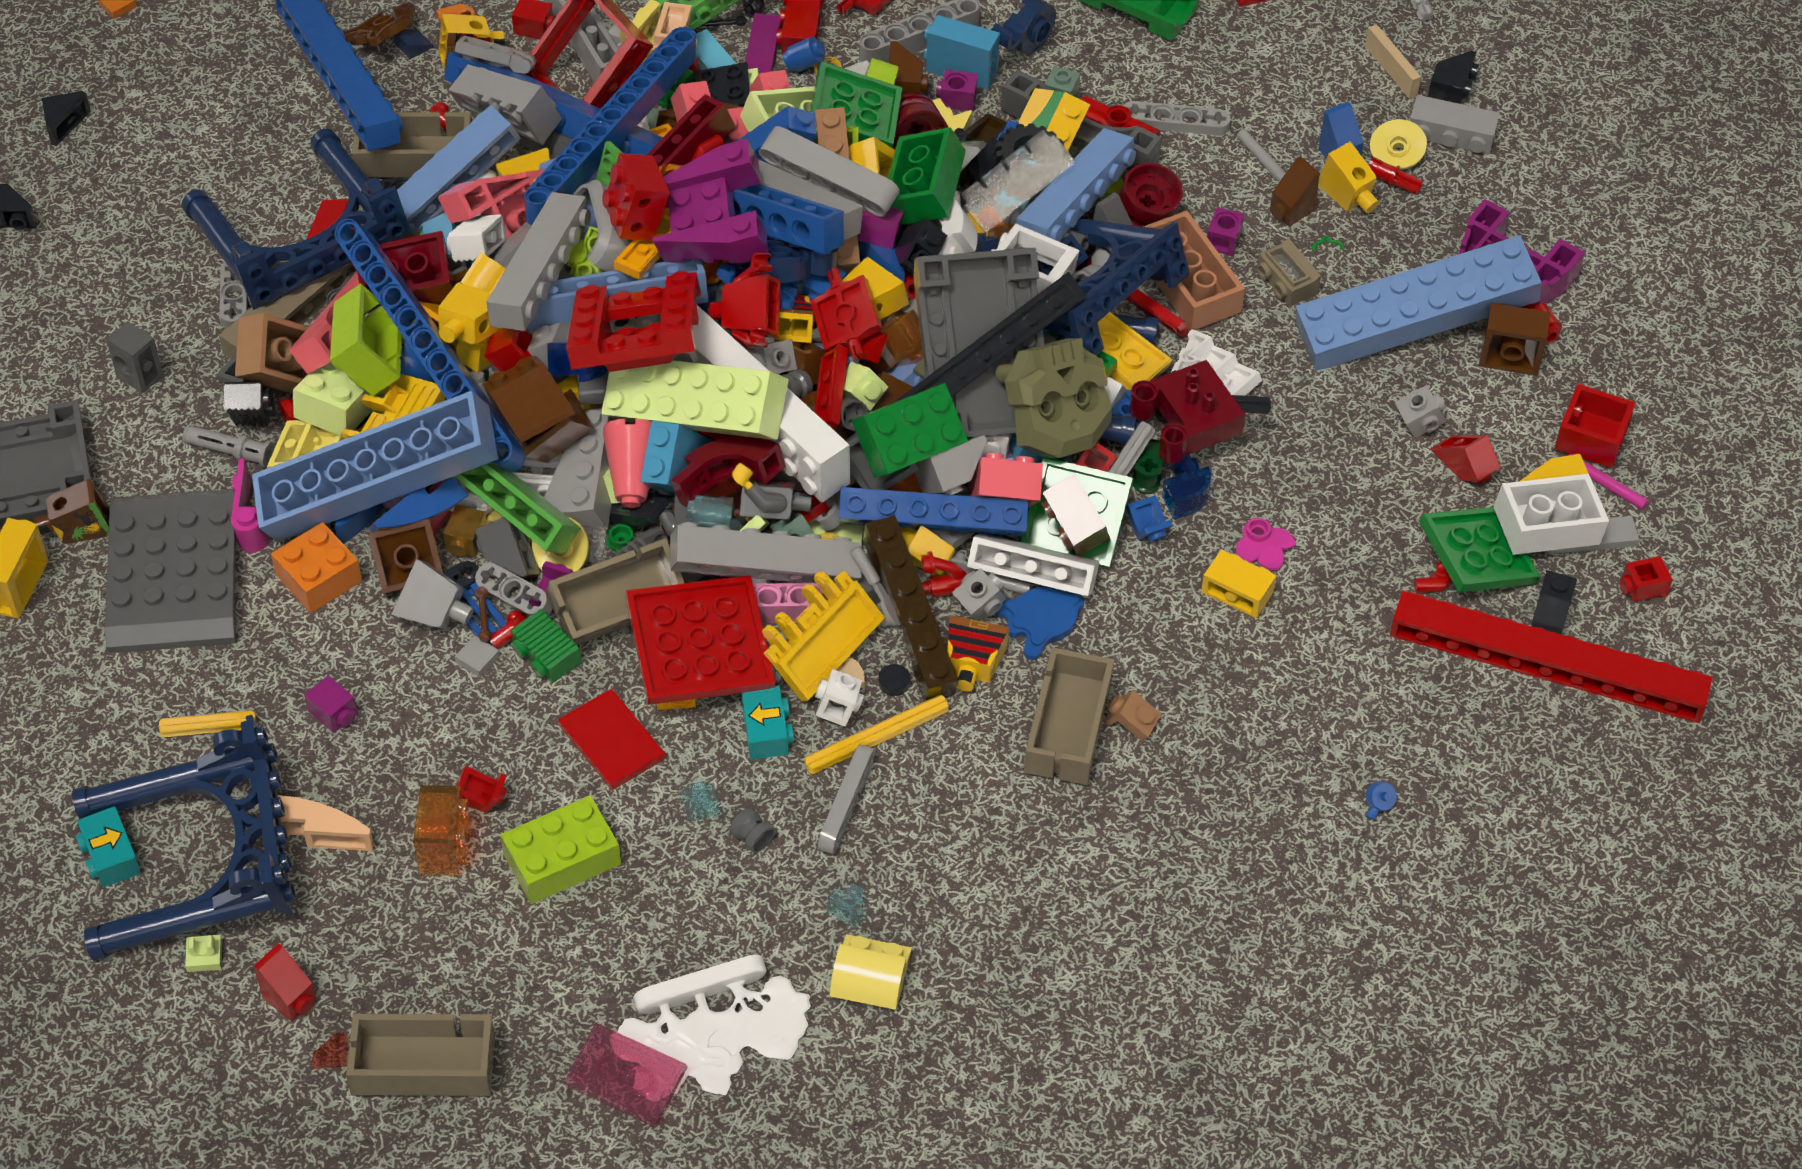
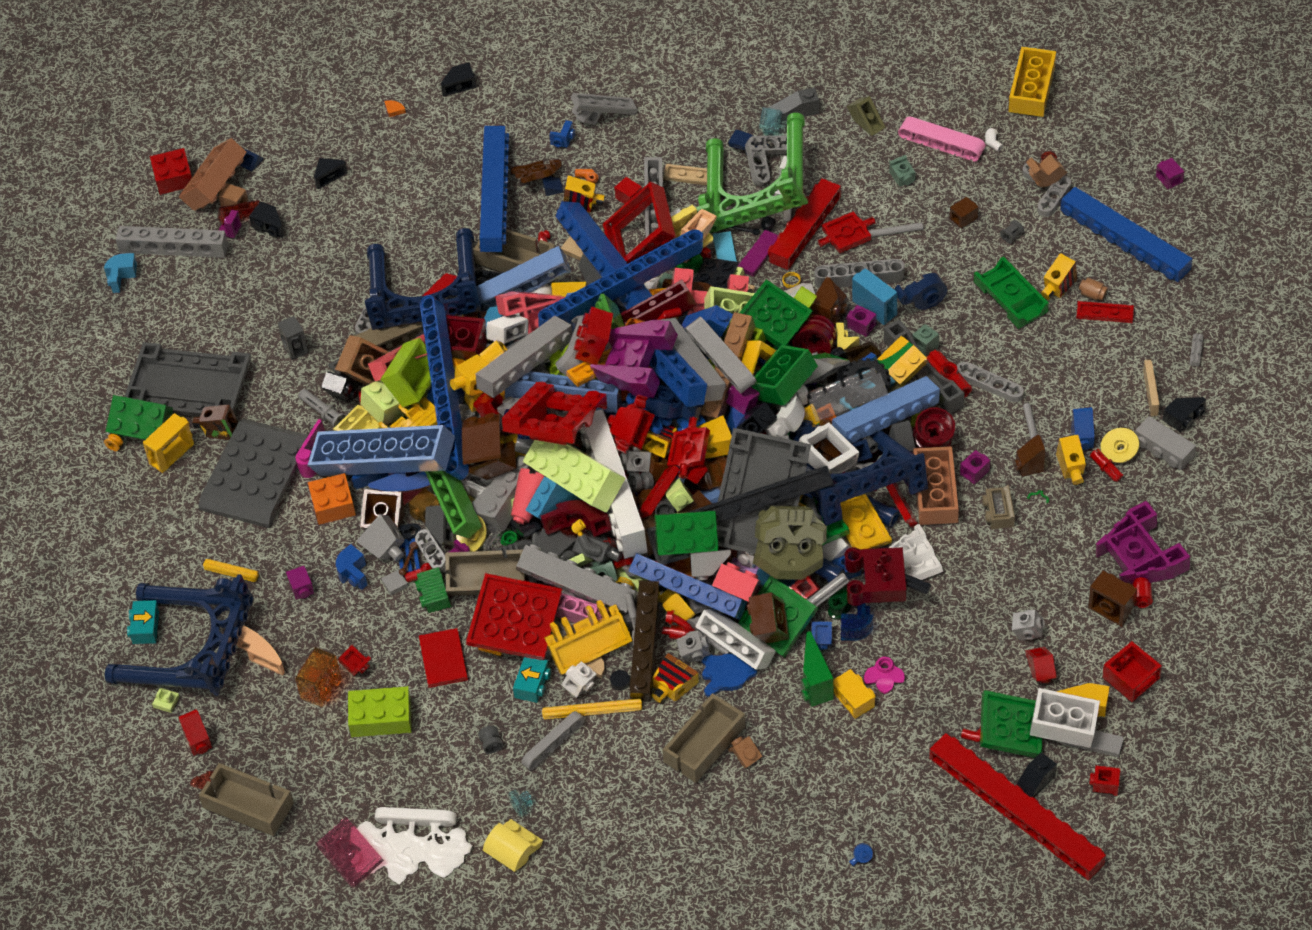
camera: 30 degrees right, 0 degrees up
(397, 657) = (348, 567): none -> blue brick
(496, 54) = (588, 210): light grey hinge -> none
(516, 100) = (574, 246): light grey wedge -> none
(700, 801) = (472, 712): clear light blue tile -> none
(709, 511) = (555, 542): clear light blue brick -> none
(804, 54) = (778, 267): blue brick -> none
(1177, 570) = (817, 678): none -> green slope
(1417, 303) = (1061, 554): medium blue brick -> none
(1616, 487) = (1124, 711): dark pink bar -> none

